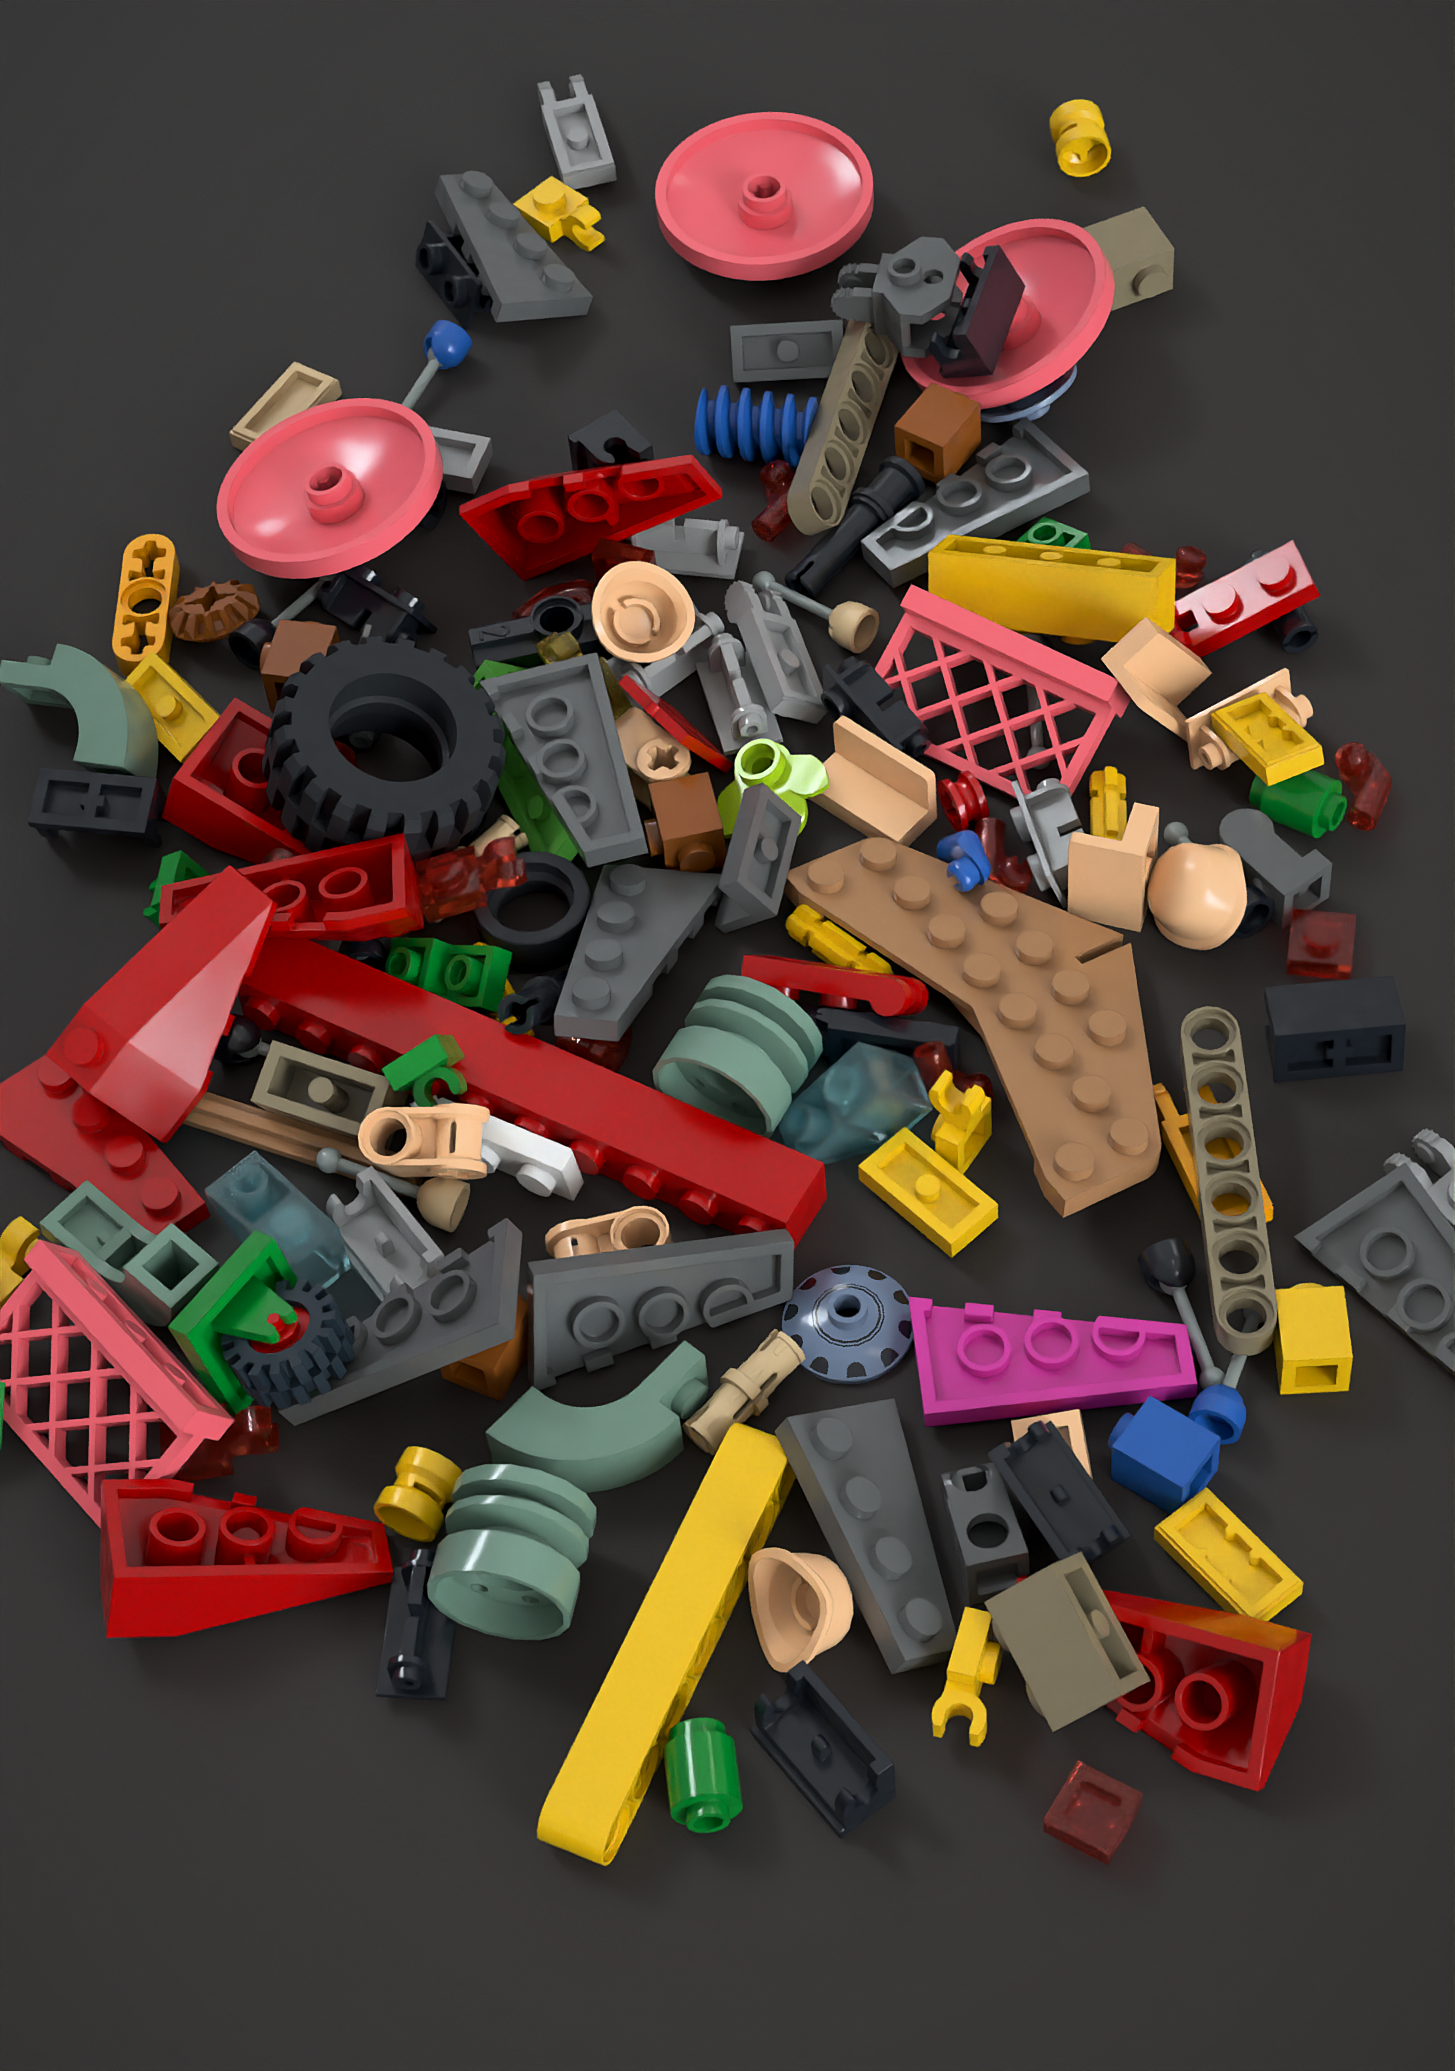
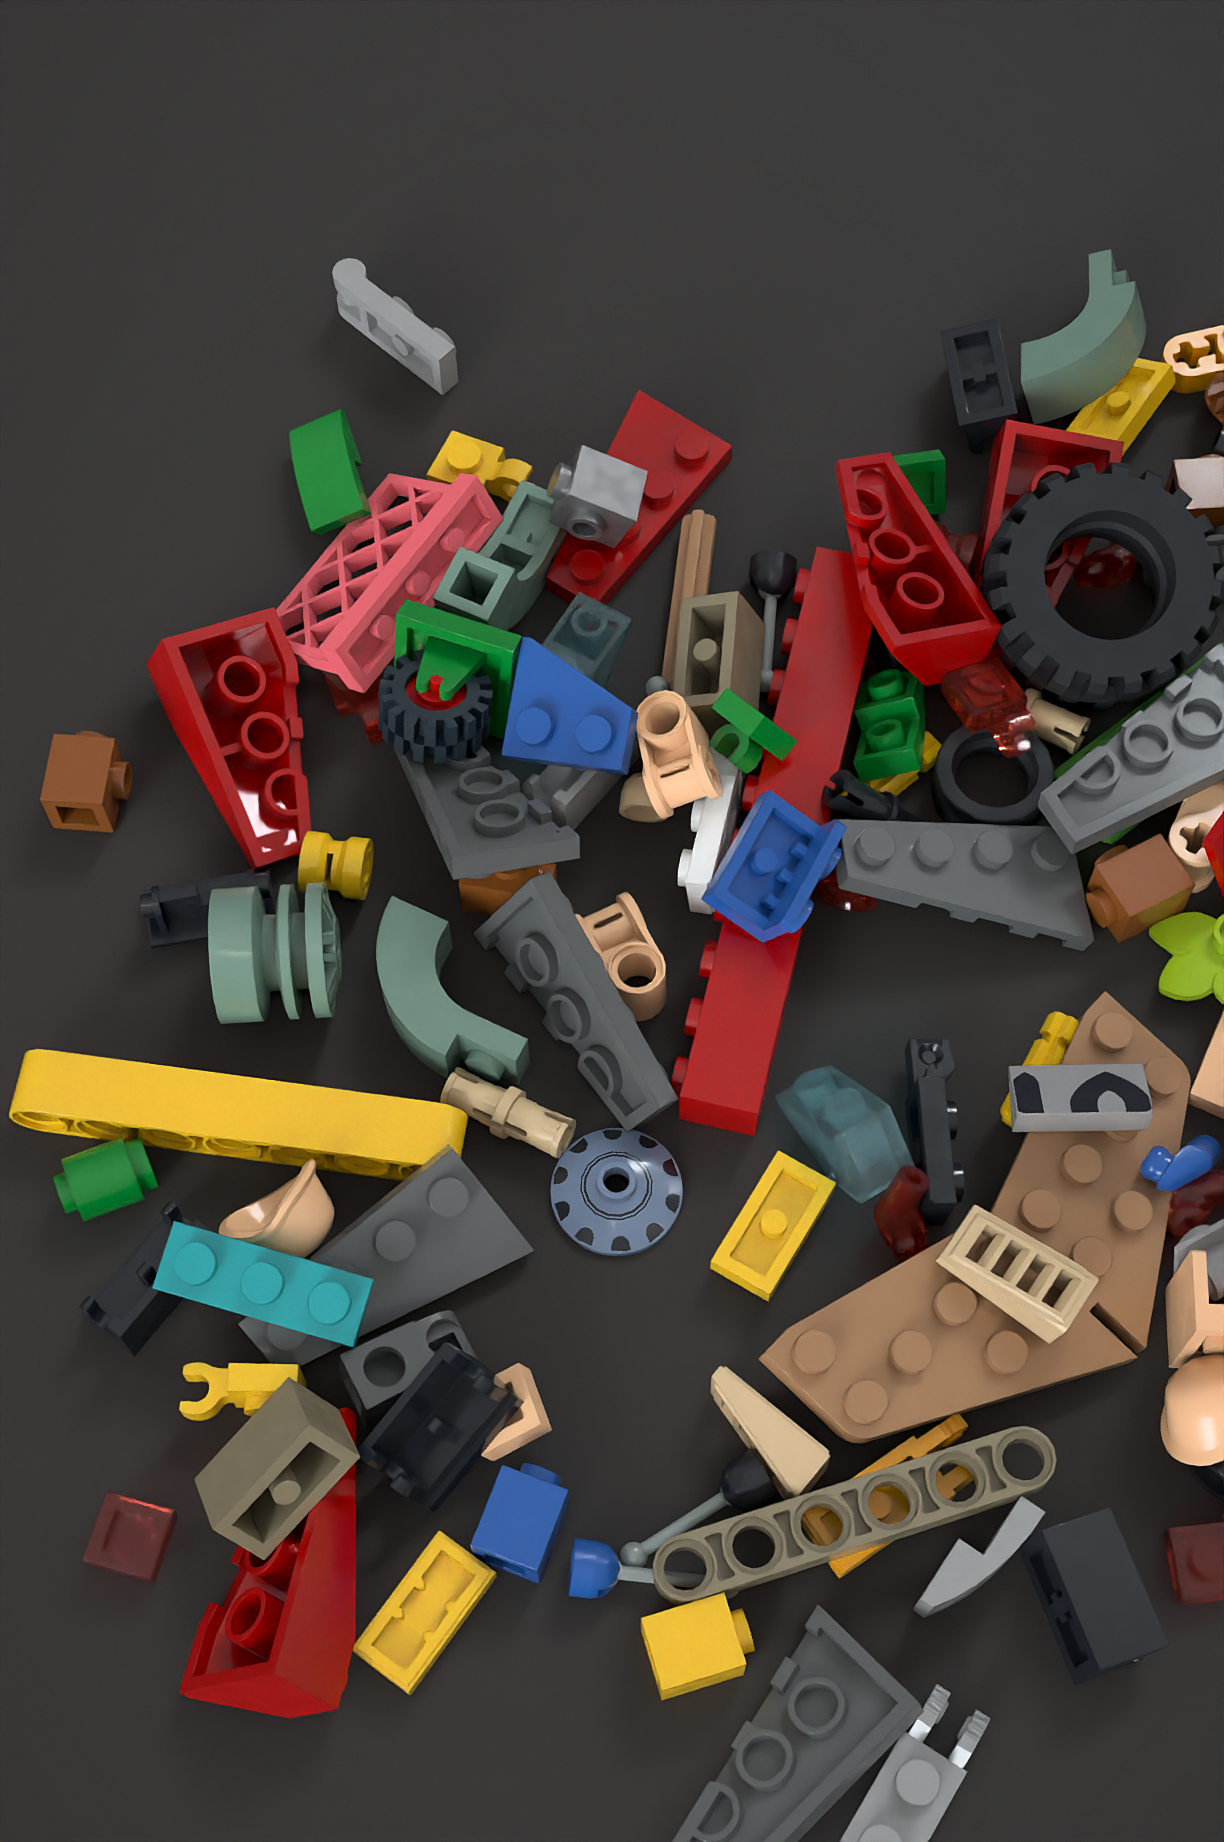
camera: 70 degrees right, 10 degrees up
(101, 1147) = (596, 496): none -> flat silver brick
(159, 1019) = (736, 493): red wedge -> none
(226, 1725) = (85, 782): none -> dark orange brick
(352, 1221) = (565, 717): none -> blue wing
(588, 1076) = (774, 868): none -> blue bracket
(740, 1053) = (854, 1003): sand green wheel -> none
(757, 859) = (1110, 959): dark grey panel -> none
(838, 984) = (981, 1076): red plate -> none
(878, 1614) = (264, 1284): none -> teal plate
(887, 908) = (1079, 1098): none -> light grey slope
(962, 1122) = (848, 1234): yellow plate -> none
(1017, 1365) = (603, 1369): dark pink wing -> none
(1066, 957) = (1023, 1306): none -> tan slope
(1119, 1239) = (781, 1446): none -> tan slope
(1291, 1111) = (968, 1569): none -> light grey slope

